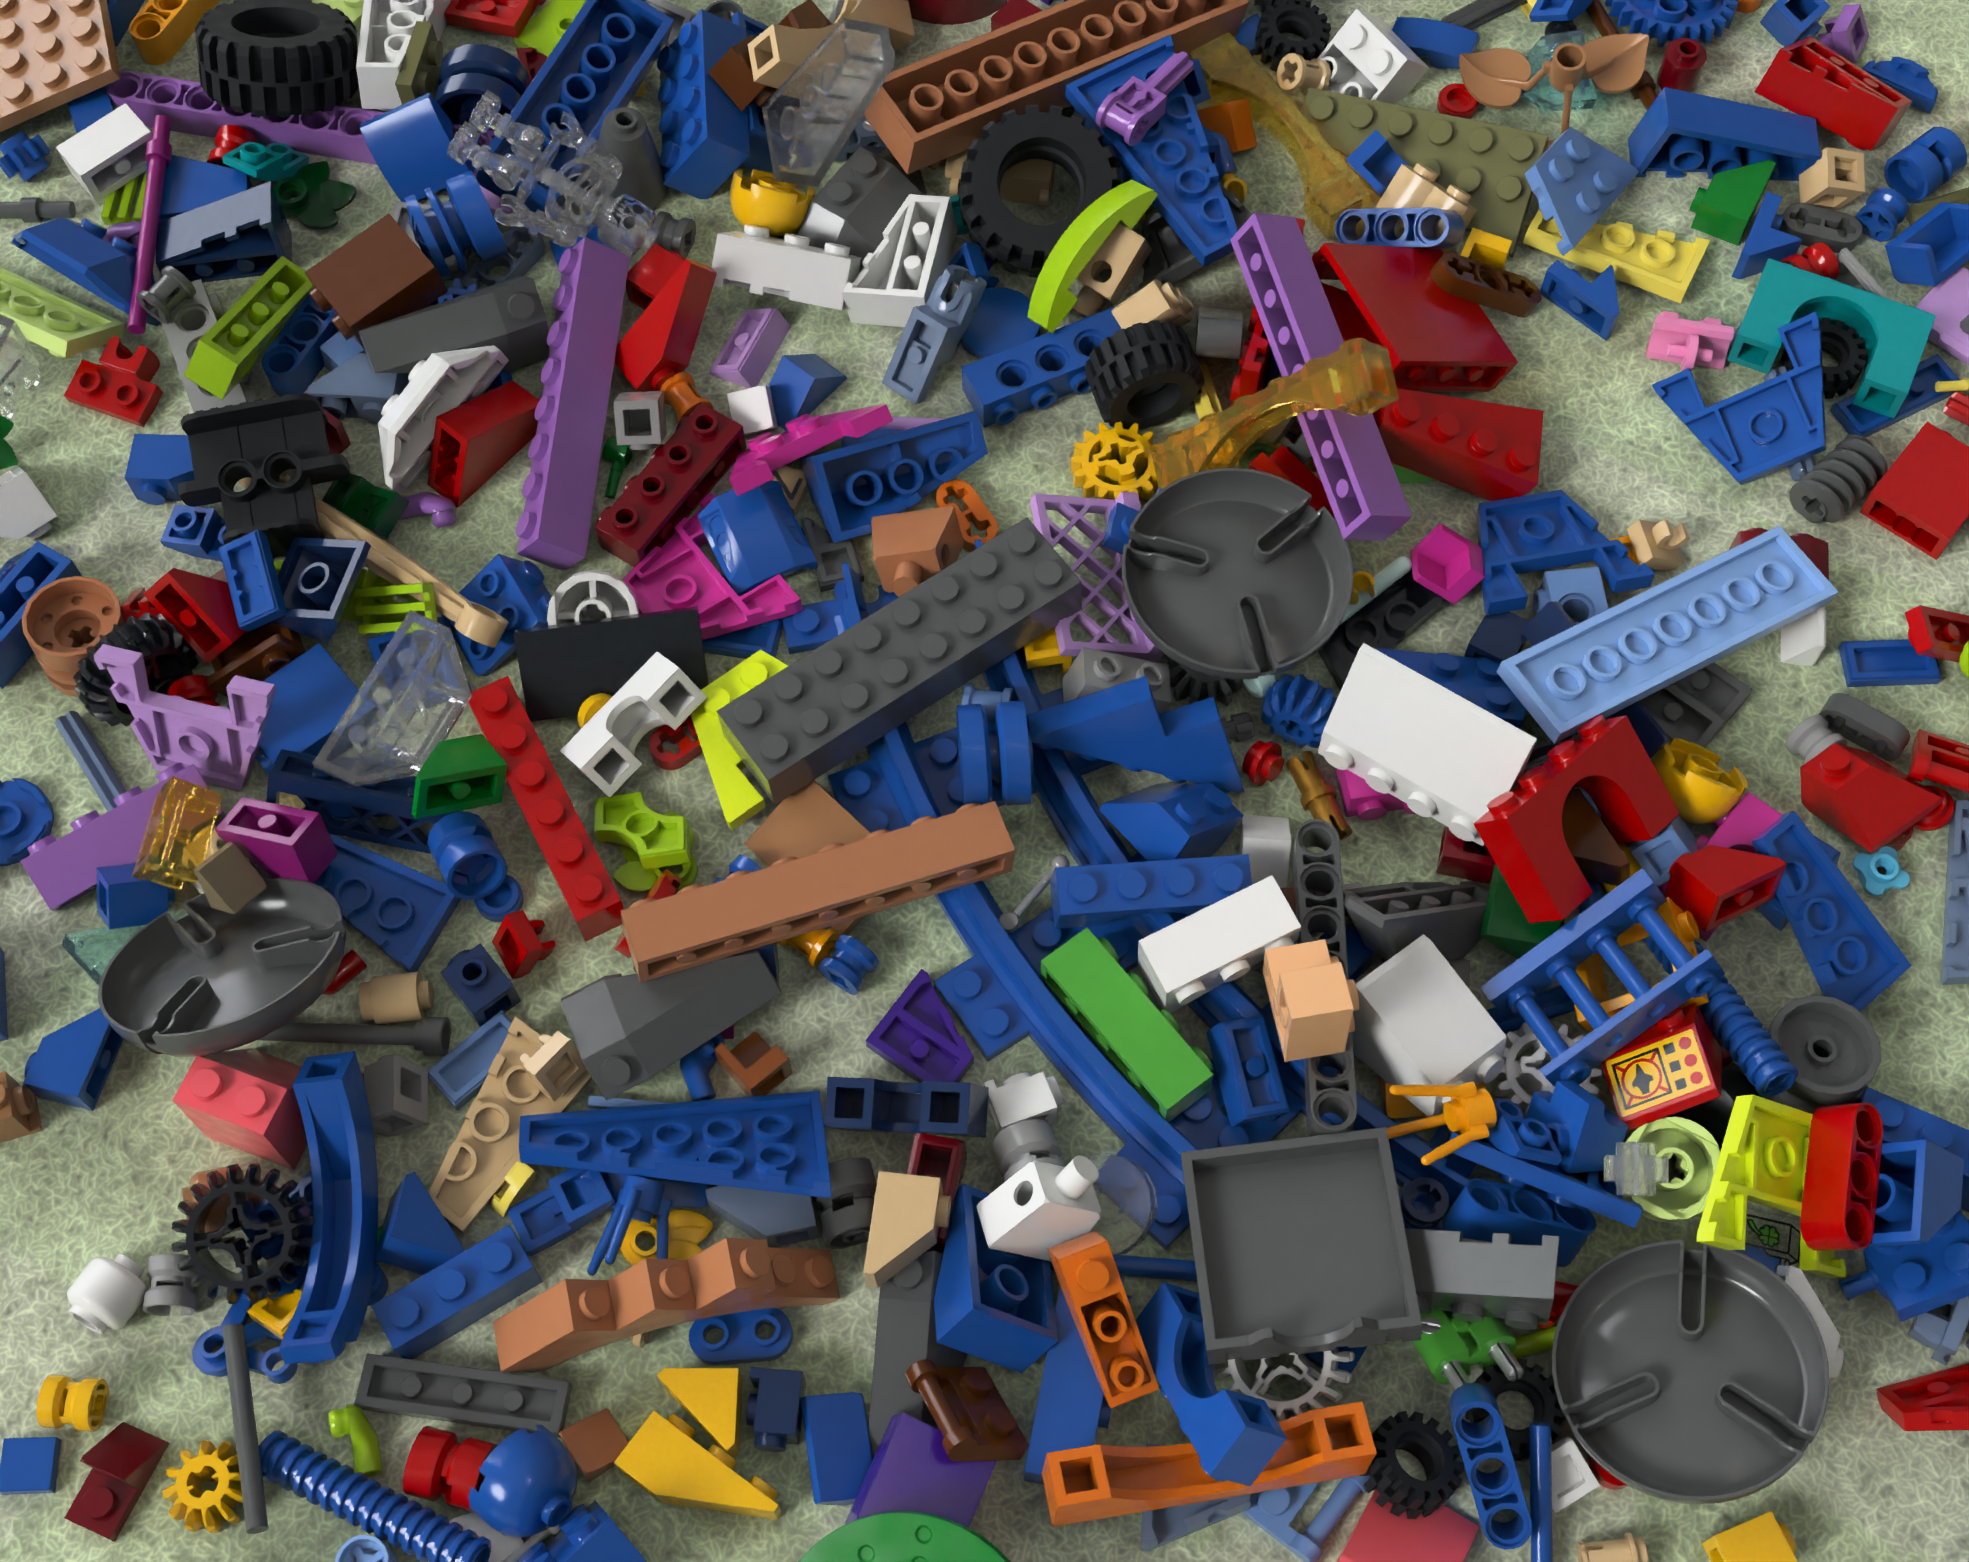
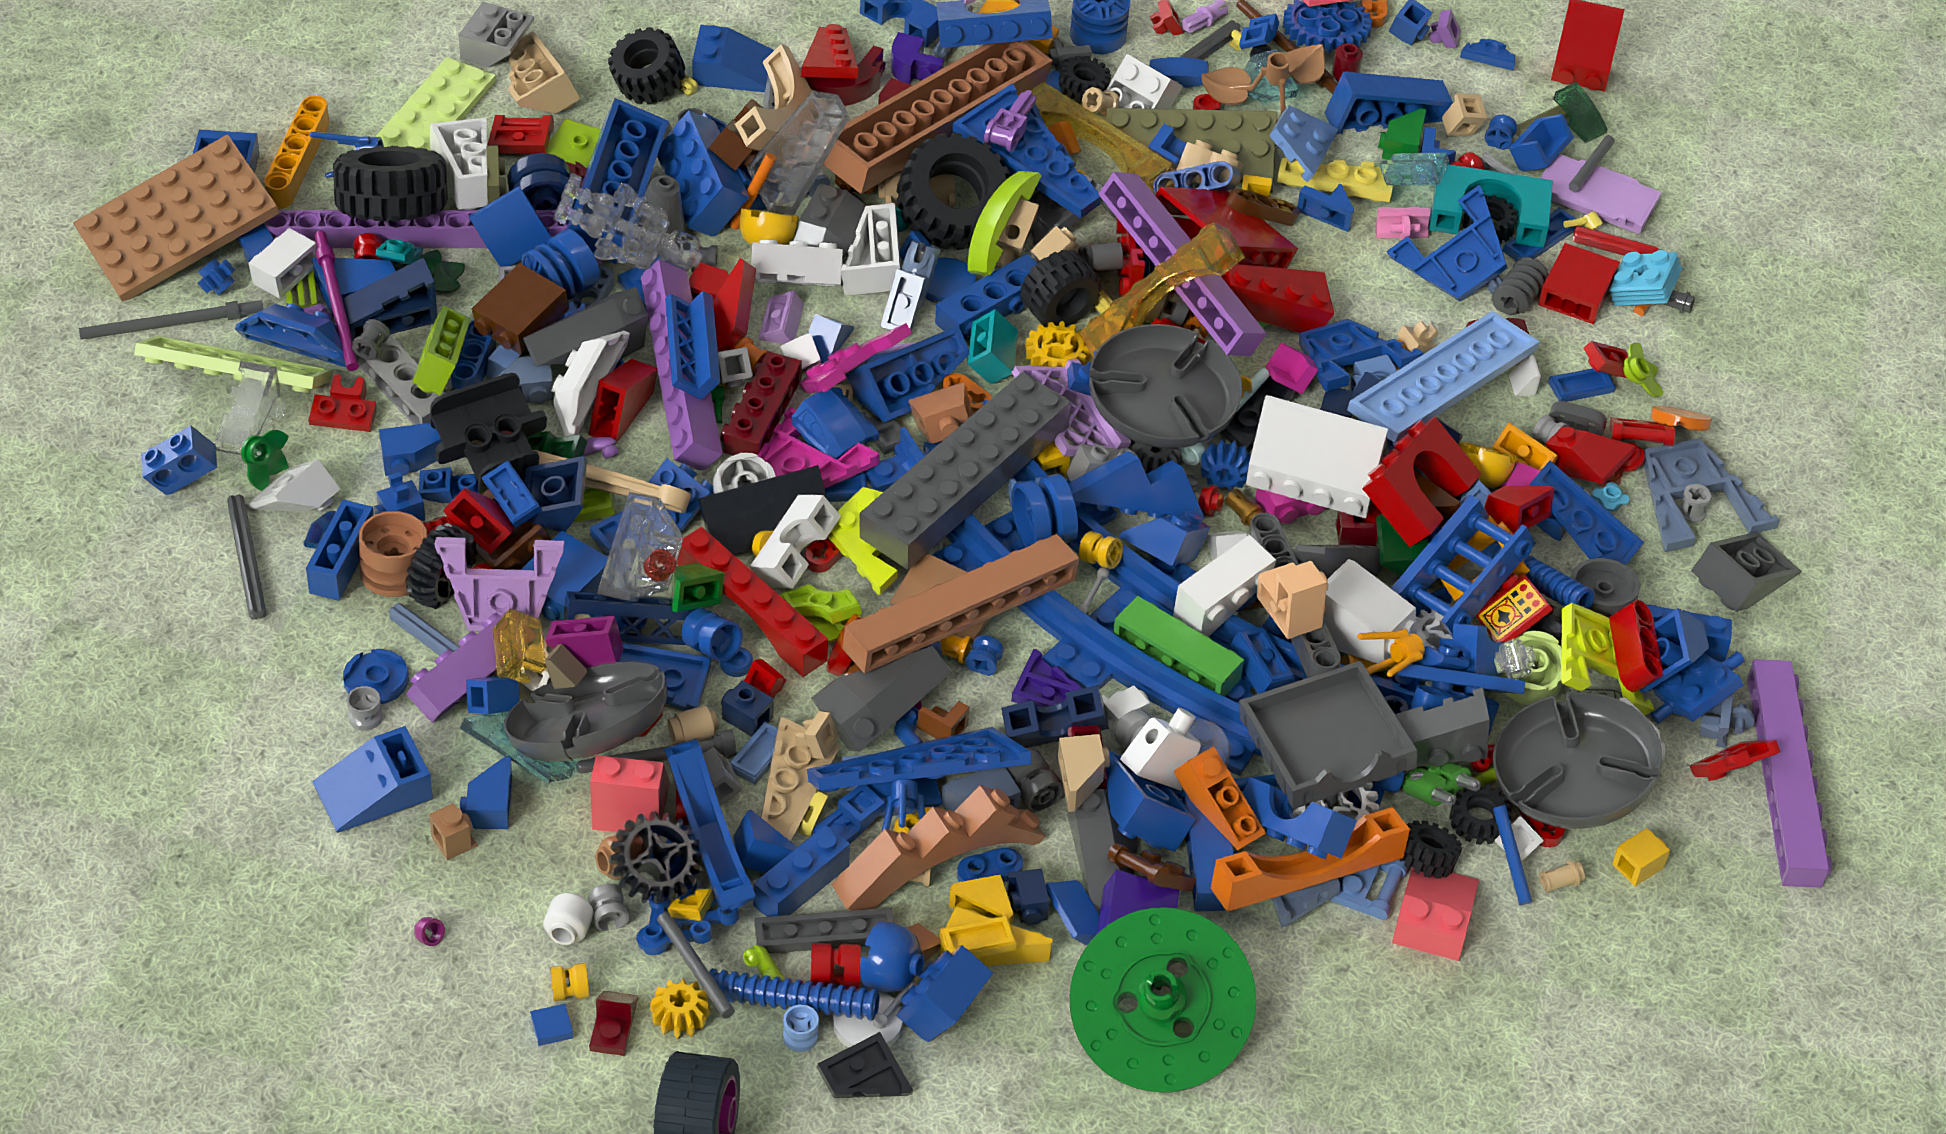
camera: 20 degrees left, 15 degrees down
(127, 554) = (400, 497): none -> blue brick
(370, 610) = (587, 519): lime tile -> none
(402, 729) = (663, 557): none -> clear red bush
(600, 385) = (699, 346): none -> blue fence
(663, 1483) = (980, 937): none -> yellow tile
(765, 135) = (754, 187): none -> orange bar
(1022, 449) = (993, 347): none -> teal brick
(1066, 832) = (1102, 550): none -> yellow wheel
(1118, 890) = (1152, 572): blue arch -> none
(1496, 1489) = (1491, 843): blue beam -> none
(1697, 704) = (1473, 420): dark grey slope -> none
(1729, 261) = (1414, 168): none -> clear light blue bracket
(1766, 770) = (1523, 447): none -> light orange slope
(1821, 226) = (1465, 143): dark grey beam -> none
(1834, 91) = (1452, 63): red wedge -> none
(1926, 164) = (1520, 97): blue wheel -> none

